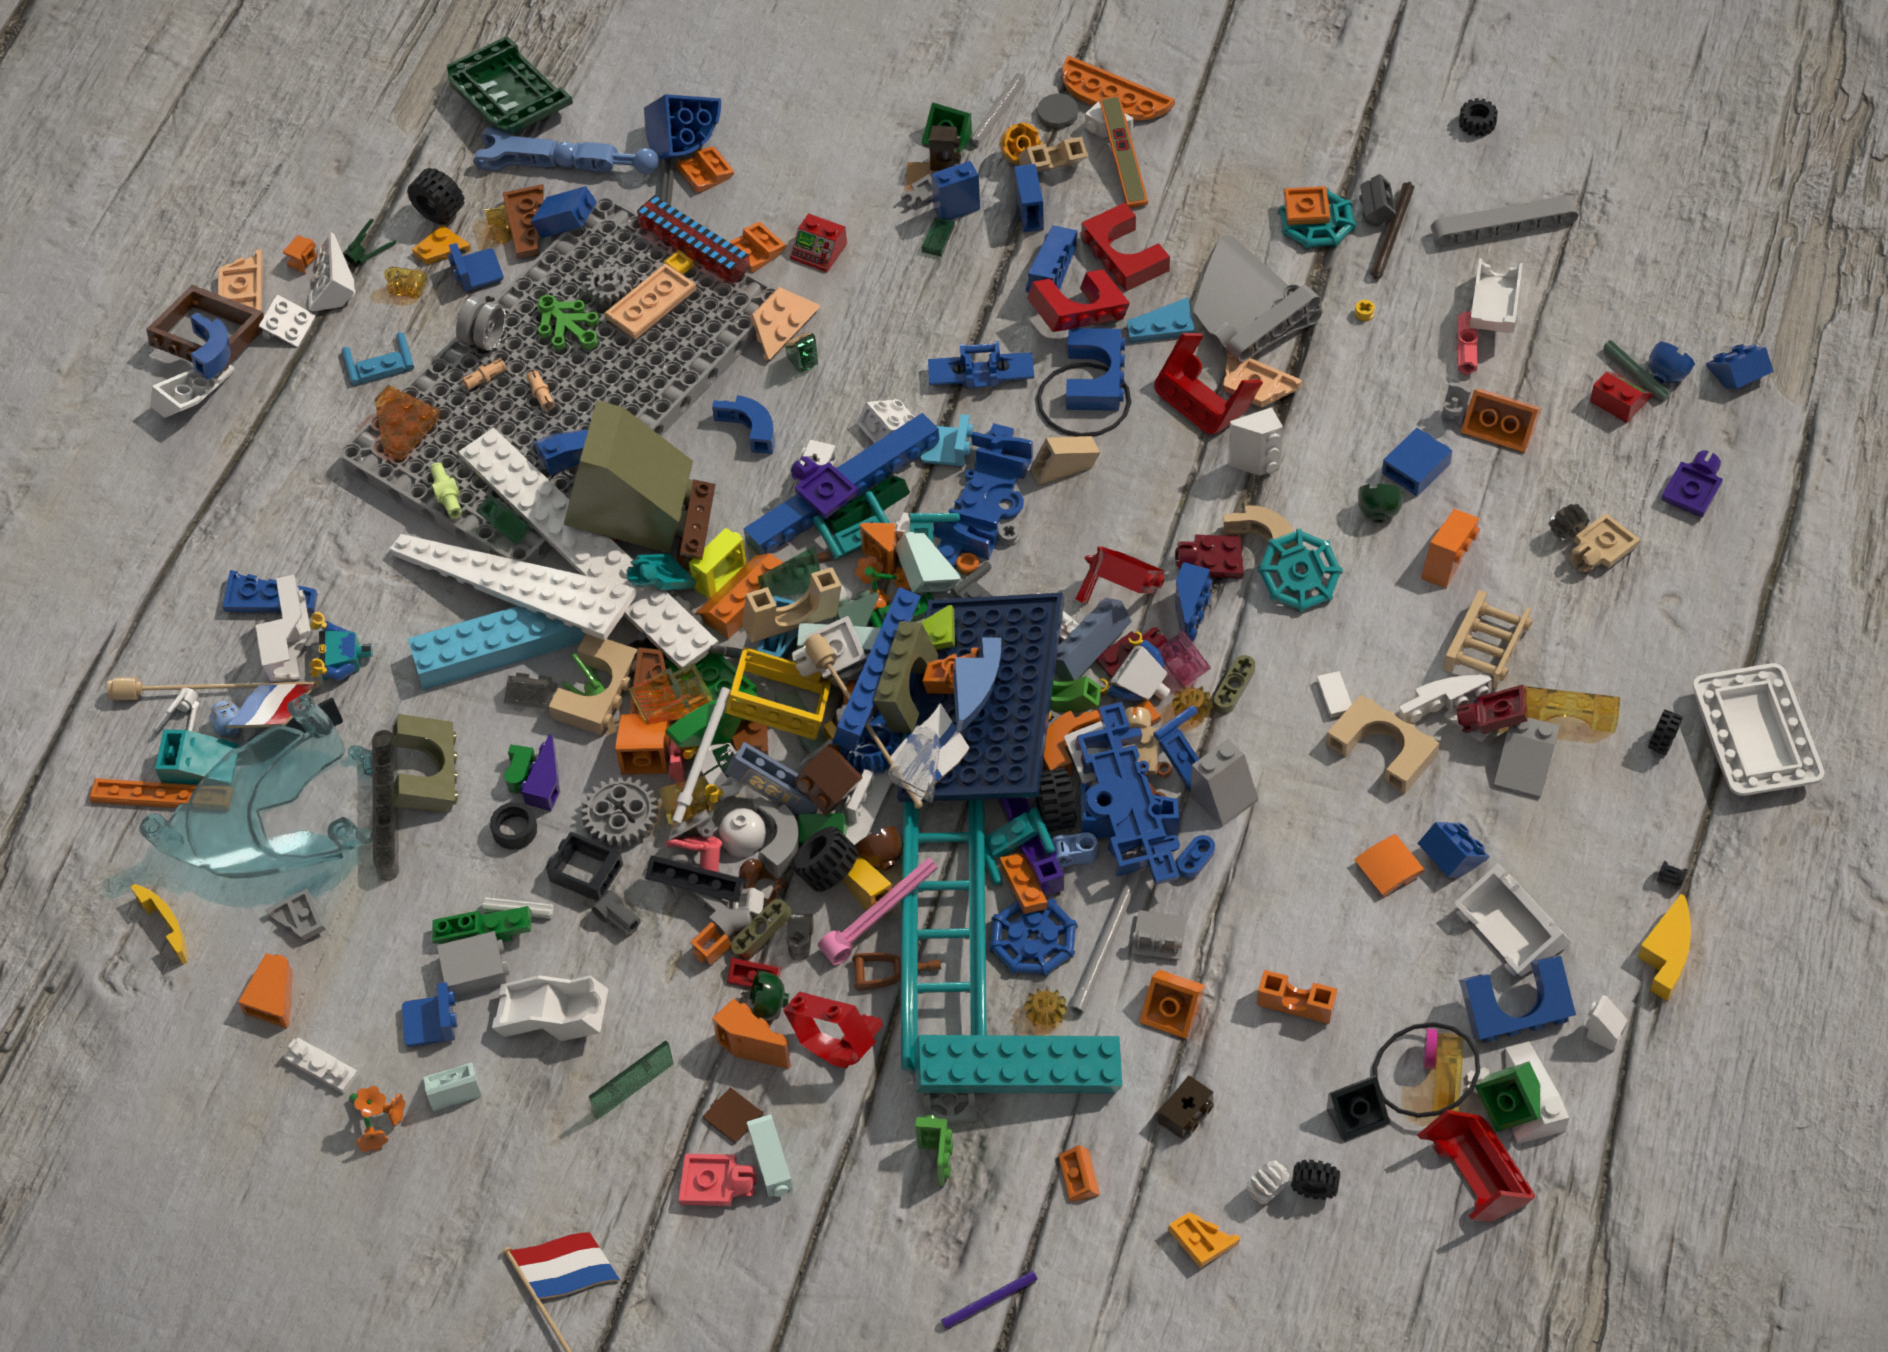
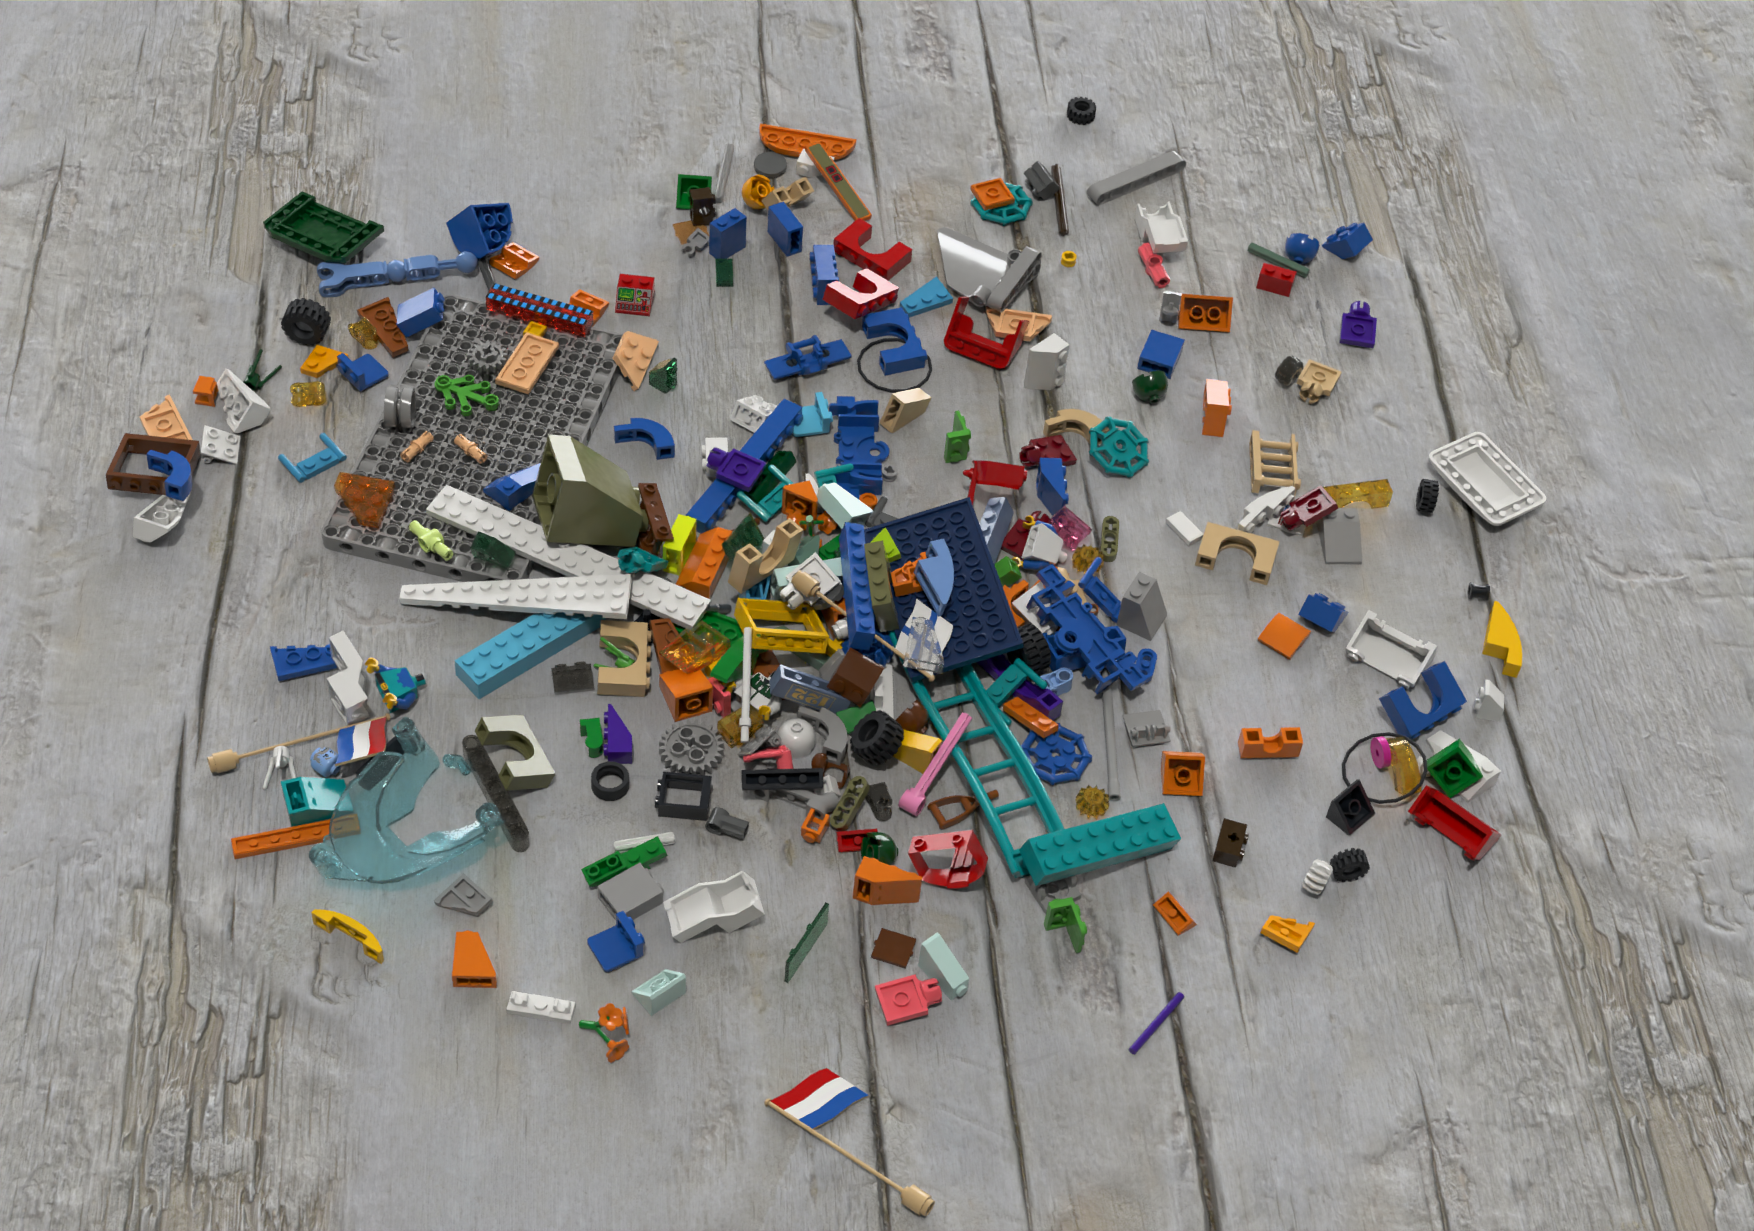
camera: 30 degrees left, 5 degrees down
(1103, 518) = (957, 441): none -> bright green bracket

